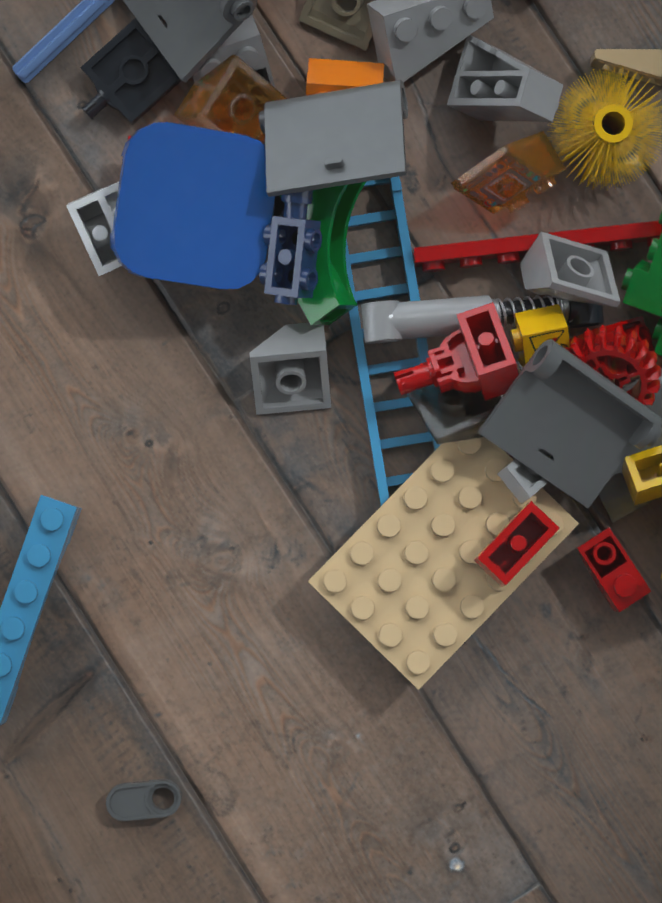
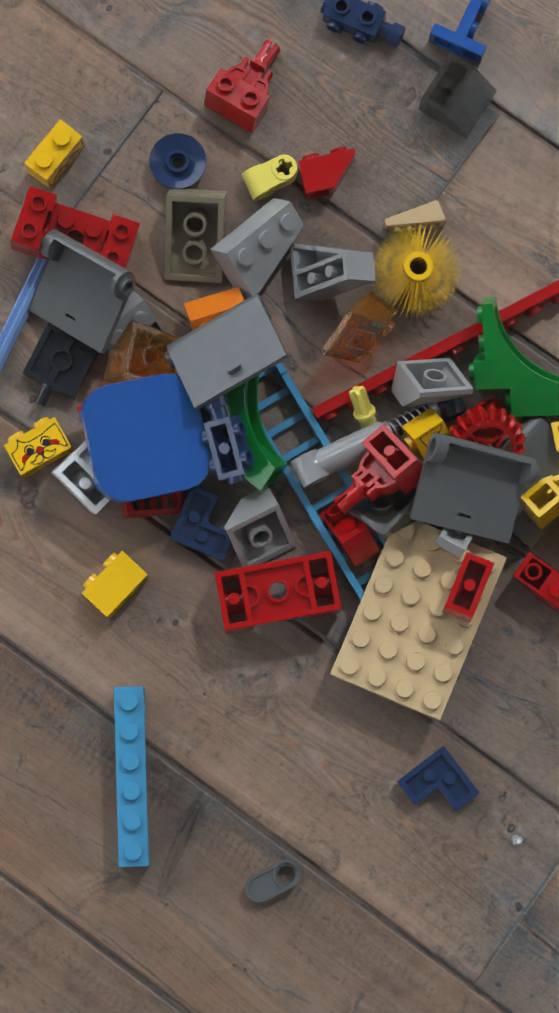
camera: 20 degrees left, 5 degrees down
(64, 165) = (38, 447): none -> brick
(92, 369) = (114, 584): none -> yellow brick
(204, 307) = (177, 499): none -> red slope
(214, 337) = (193, 526): none -> dark blue plate
(243, 446) = (308, 583): none -> red plate
(394, 748) = (439, 772): none -> dark blue plate
(400, 422) = (350, 535): none -> red slope
(476, 273) = (363, 410): none -> light yellow axle

